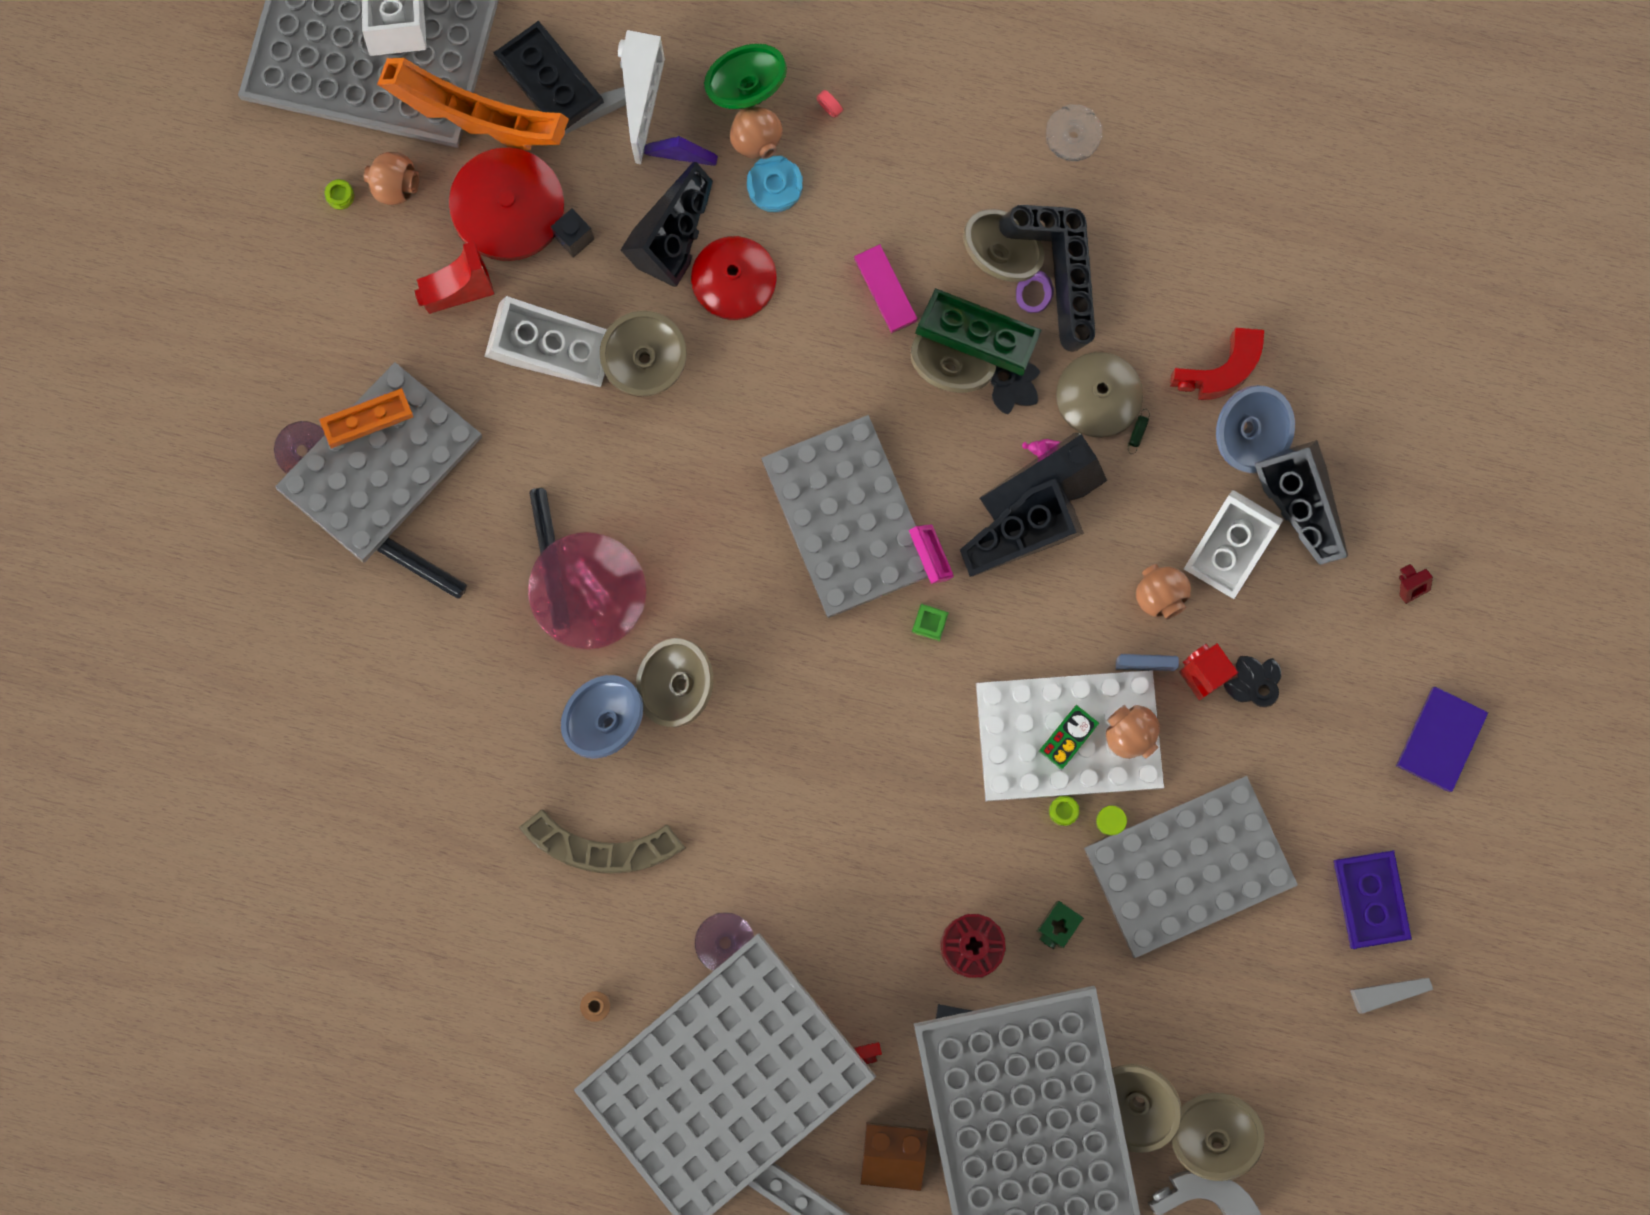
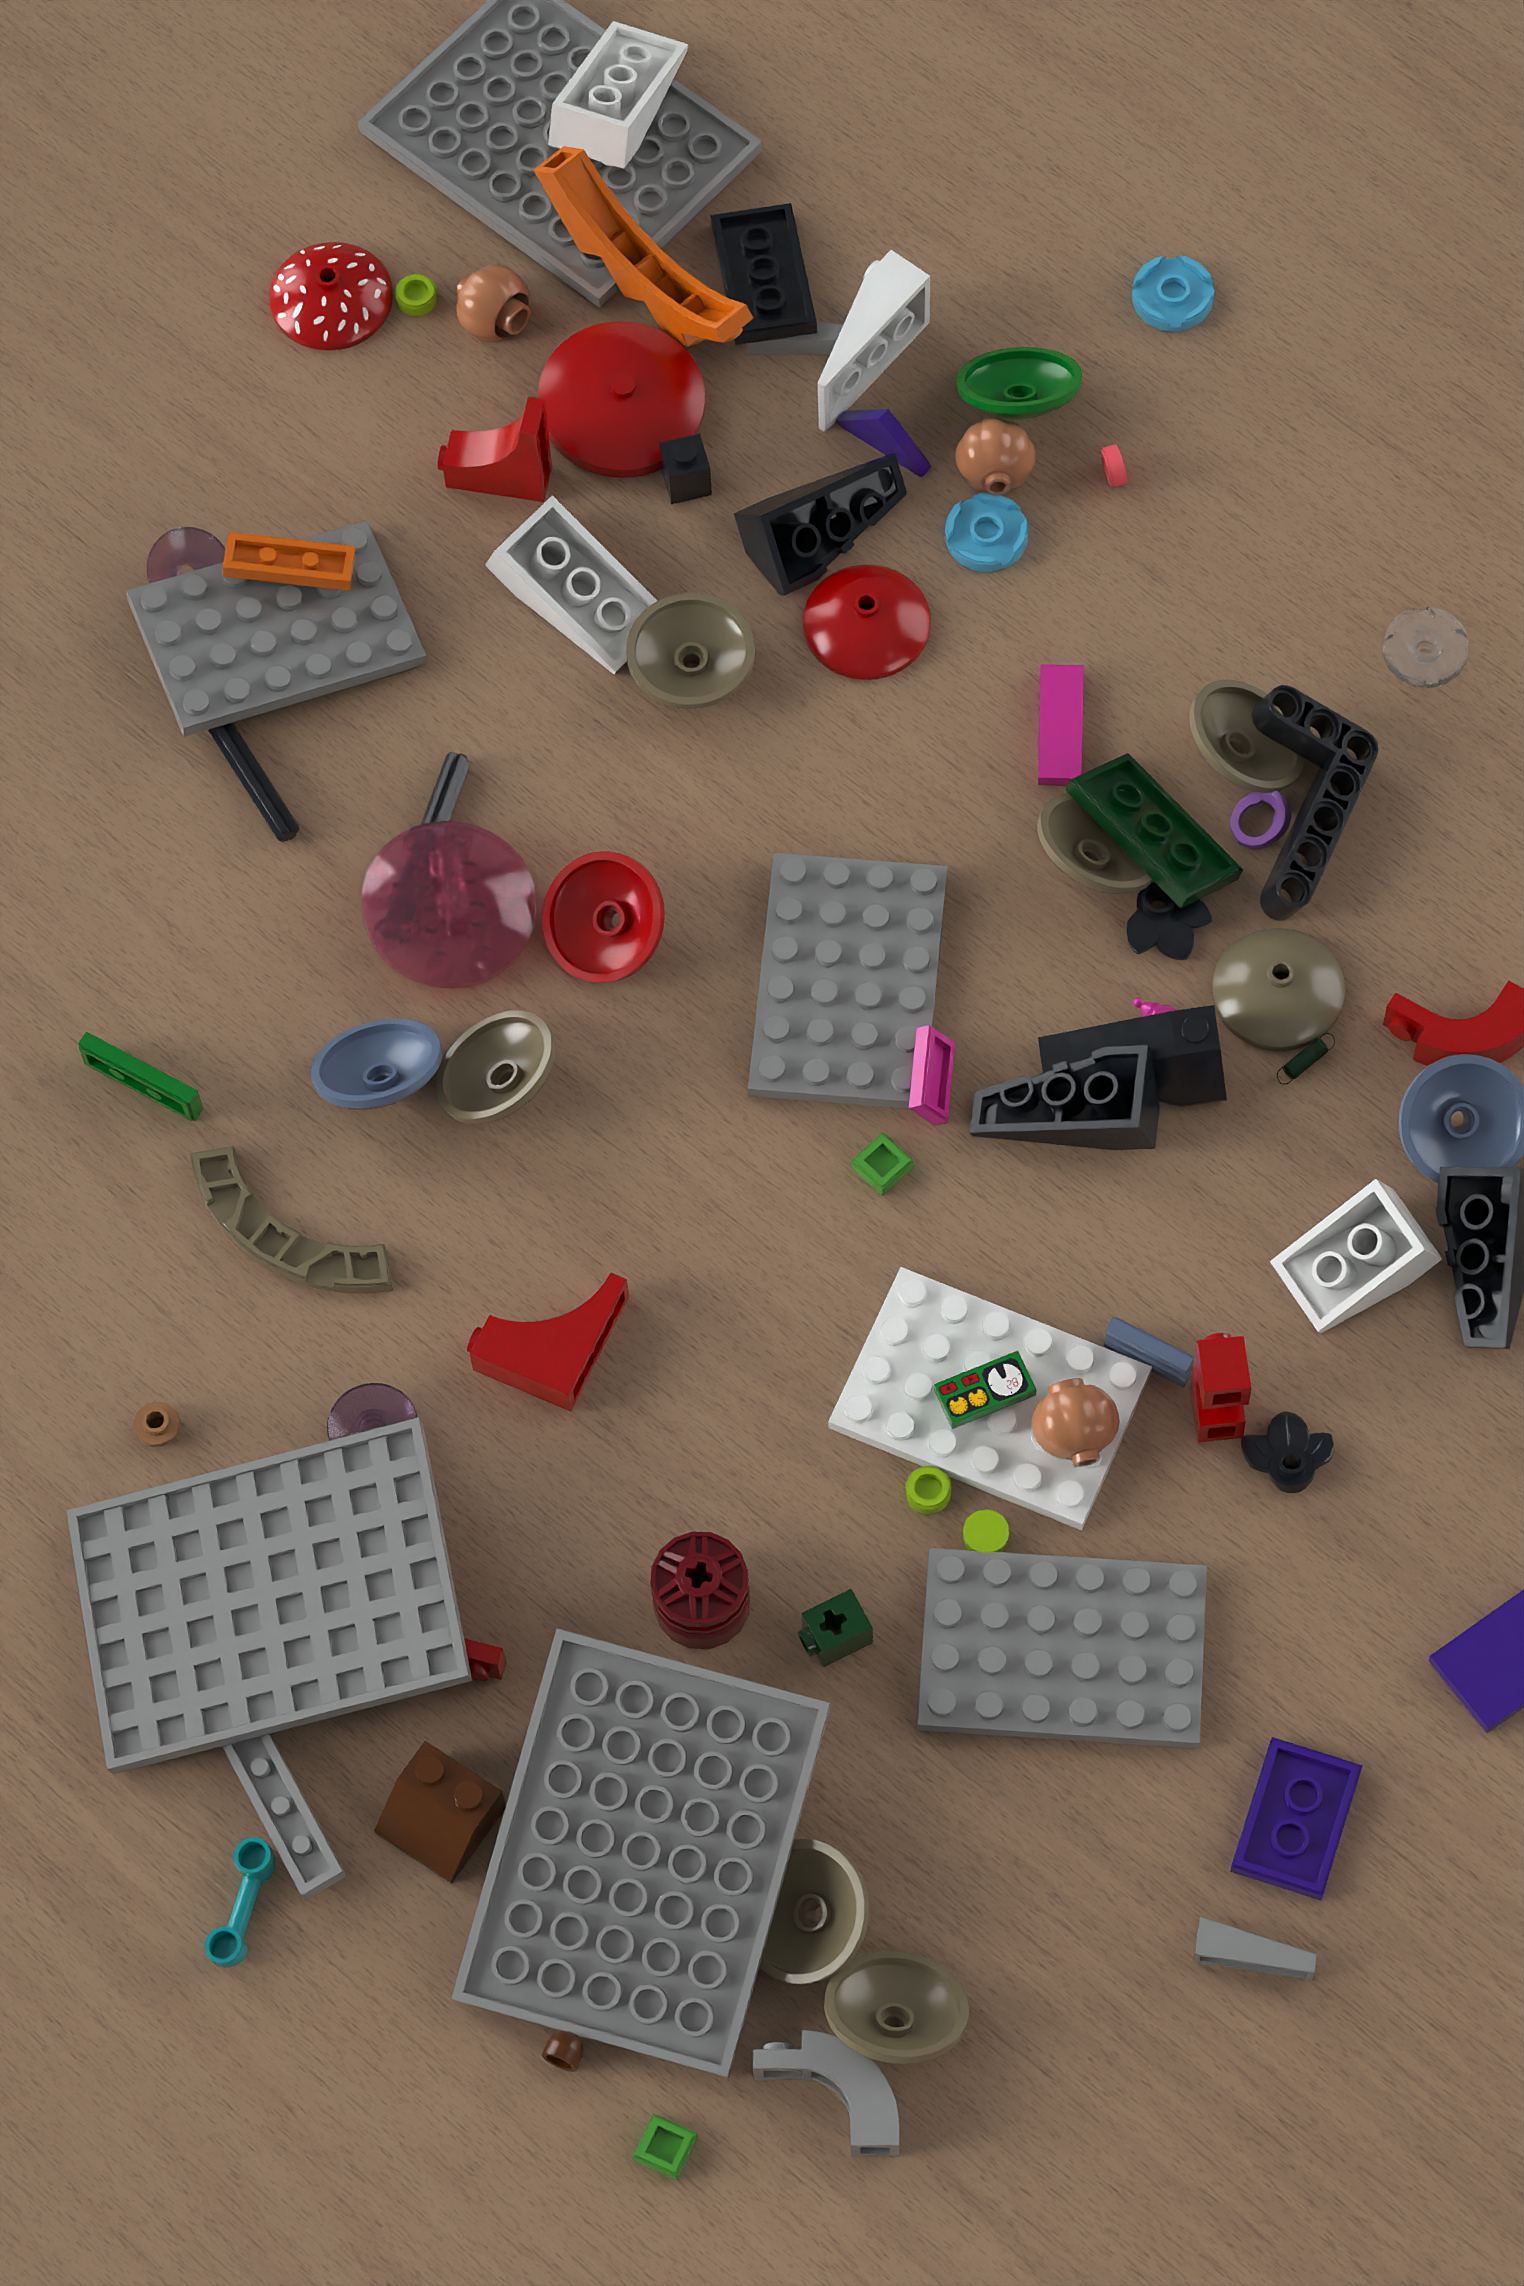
camera: 30 degrees right, 15 degrees down
(296, 232) = (332, 312): none -> red dish
(461, 795) = (140, 1077): none -> green tile
(674, 565) = (581, 911): none -> red dish
(805, 844) = (553, 1354): none -> red arch
(1163, 591) = (1223, 1273): nougat plant -> none

